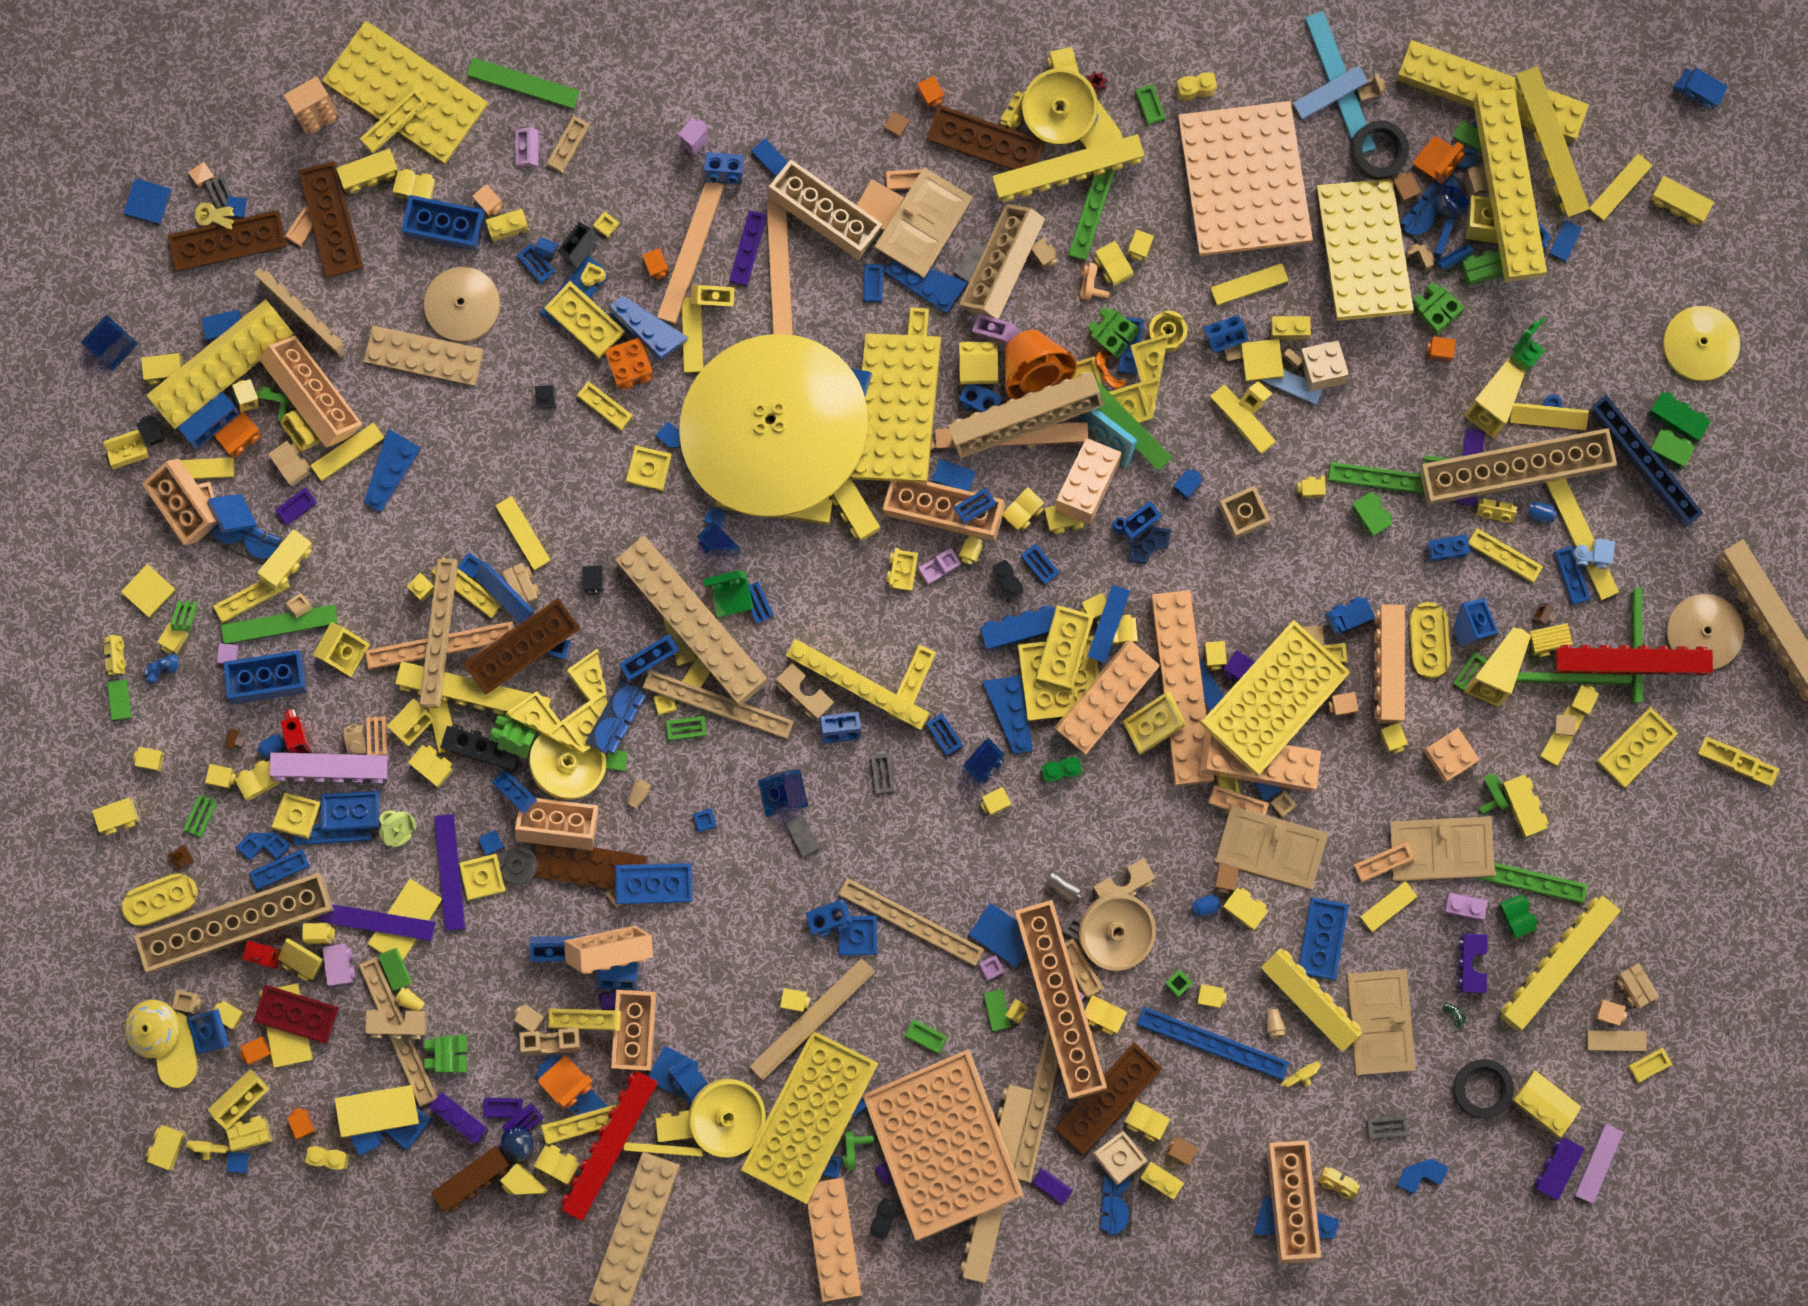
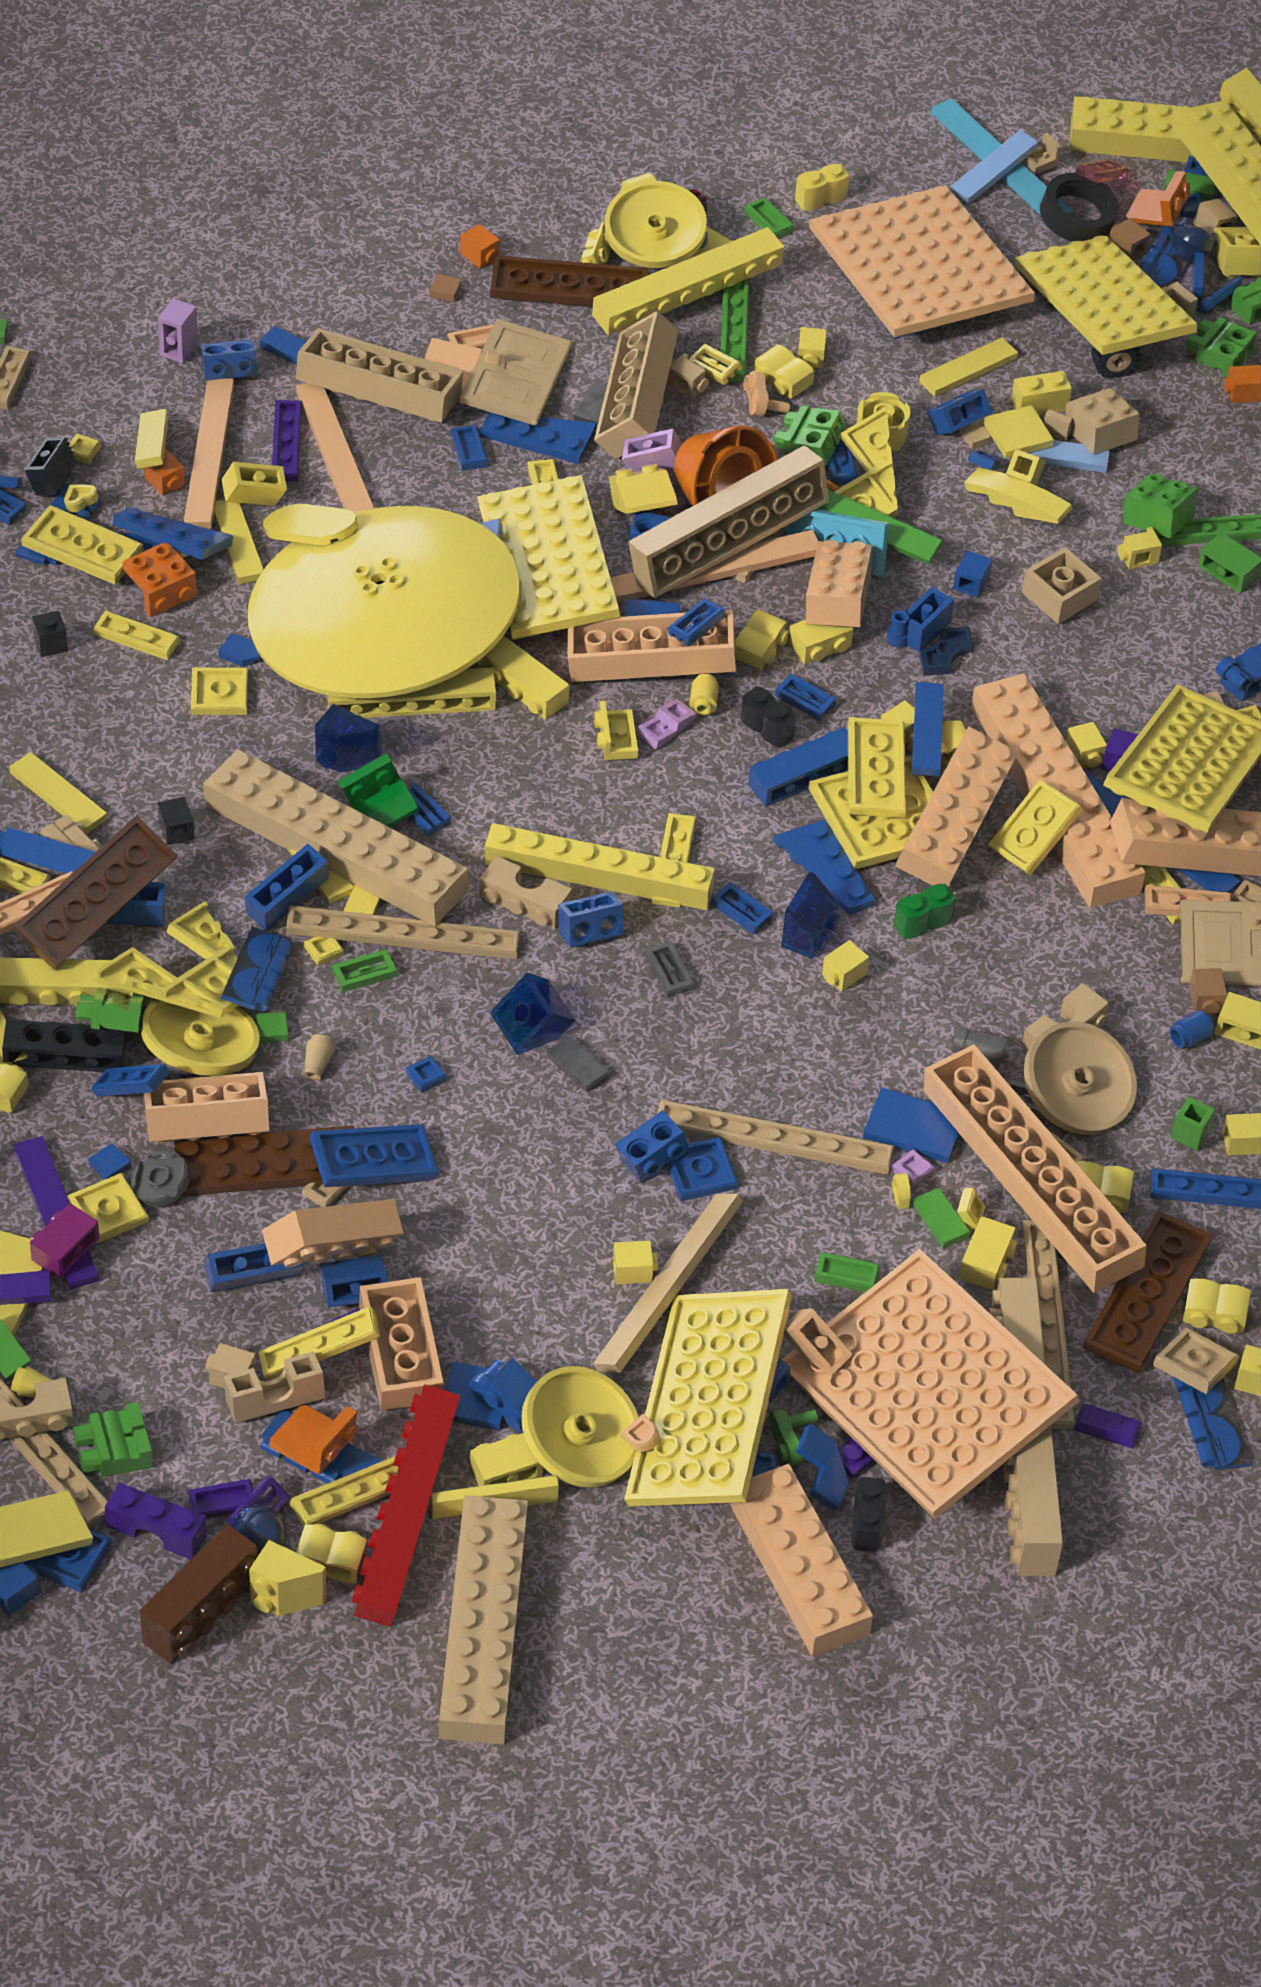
camera: 20 degrees left, 30 degrees down
(447, 903) = (64, 1240): none -> magenta brick
(652, 236) = (151, 439): none -> light yellow tile
(741, 341) = (310, 524): none -> light yellow tile
(762, 1130) = (641, 1434): none -> light nougat tile
(870, 1184) = (831, 1478): none -> blue tile
(884, 1095) = (816, 1341): none -> light nougat slope
(978, 985) = (901, 1190): none -> light yellow tile
(1016, 1047) = (987, 1253): none -> light yellow brick
(1073, 257) = (715, 370): none -> light yellow tile
(1230, 379) = (984, 460): none -> blue tile
(1337, 456) = (1160, 505): none -> bright green brick
(1407, 118) = (1102, 171): none -> clear pink tile

